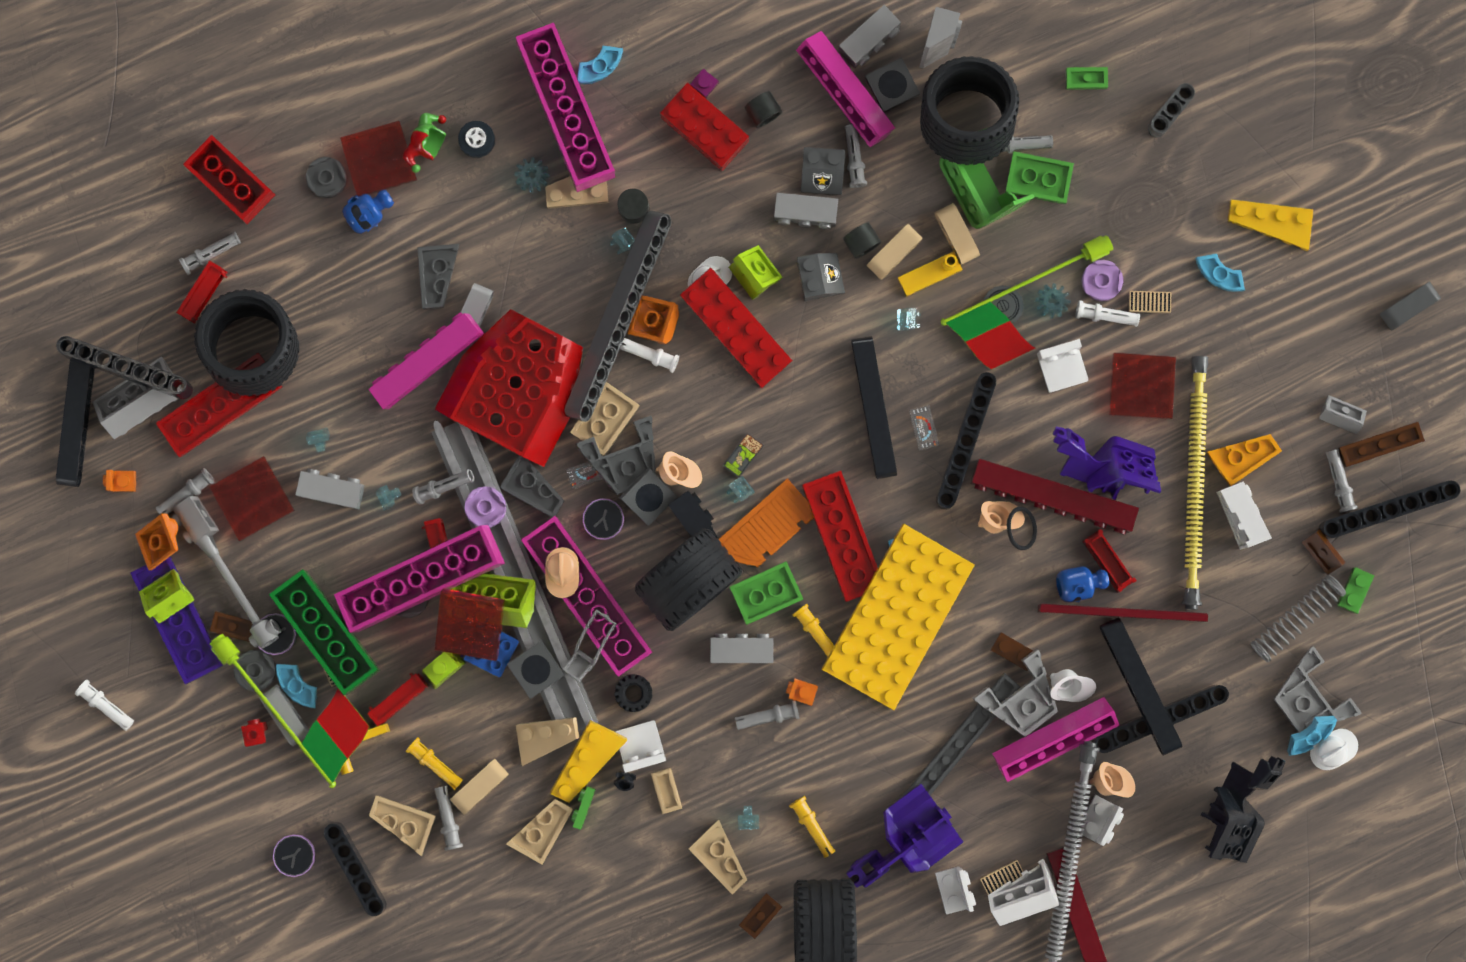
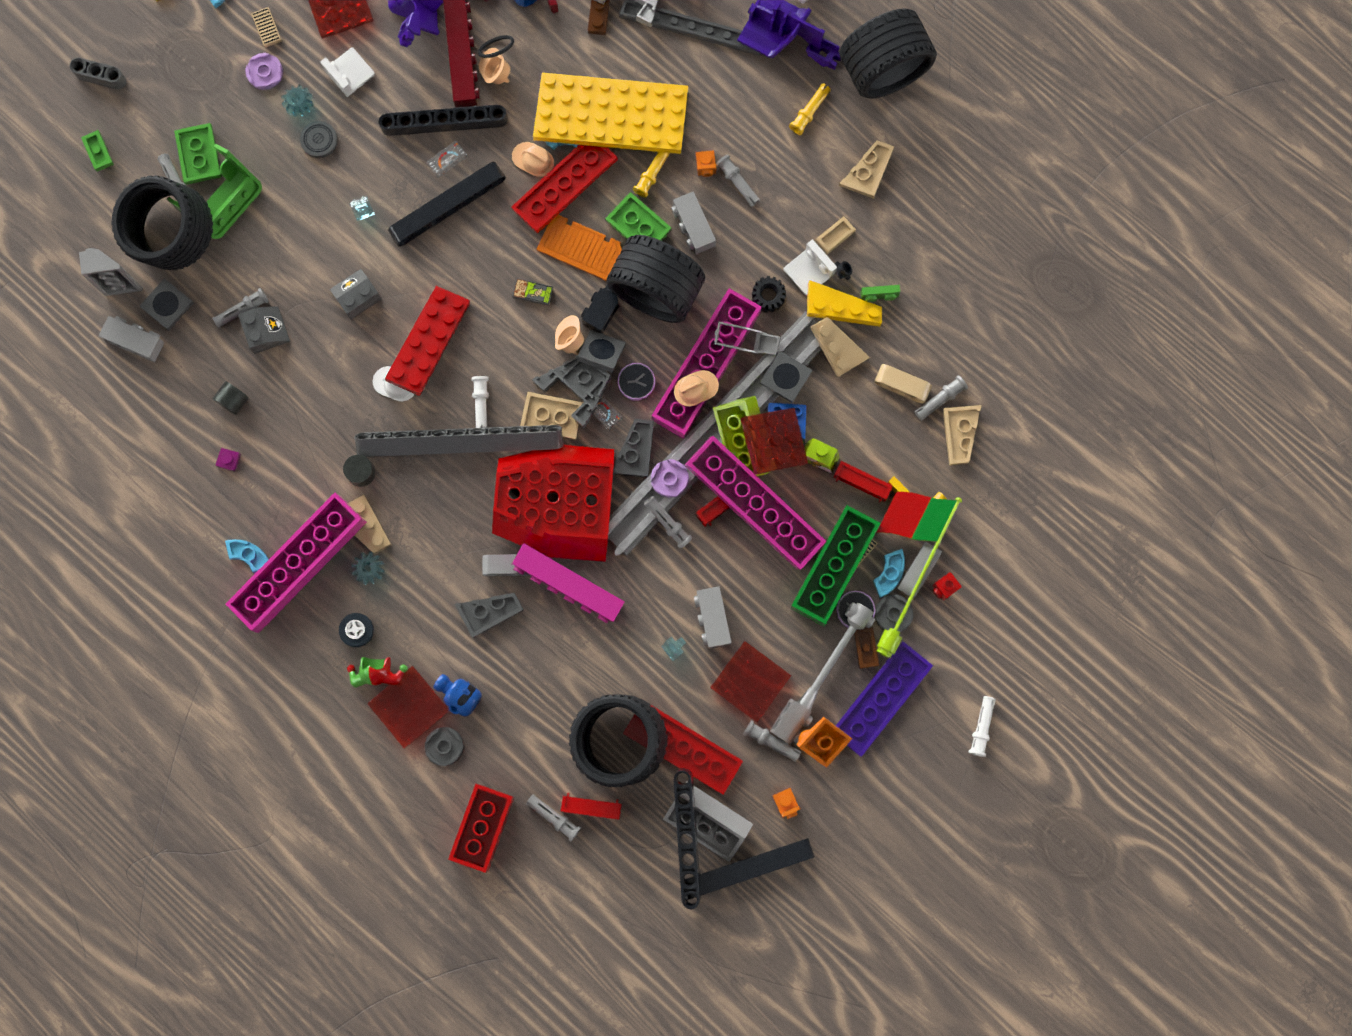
camera: 115 degrees left, 5 degrees down
(165, 596) = (867, 714): lime bracket -> none
(294, 855) = (1030, 510): black tile -> none
(364, 874) = (1022, 446): black beam -> none
(387, 497) = (697, 567): clear light blue tile -> none
(427, 758) = (899, 436): yellow pin -> none
(542, 832) = (915, 317): tan wing -> none
(623, 239) = (391, 466): clear light blue tile -> none
(654, 320) = (449, 410): orange slope -> none
(704, 127) = (265, 440): red brick -> none
(741, 489) = (561, 279): clear light blue tile -> none
(748, 820) = (827, 160): clear light blue tile -> none
(754, 271) = (374, 346): lime bracket -> none
(760, 915) = (900, 119): reddish brown plate -> none
(805, 210) = (303, 327): light grey brick -> none
(845, 88) = (185, 338): dark pink brick -> none
(862, 240) = (310, 270): pearl dark grey piece -> none
(886, 516) = (532, 159): none -> light nougat piece
(894, 252) = (309, 242): tan beam -> none
(930, 274) = (315, 206): yellow piece -> none
(957, 233) = (272, 198): tan beam -> none
(991, 333) = (343, 139): flag -> none
(1097, 312) = (292, 62): white pin -> none

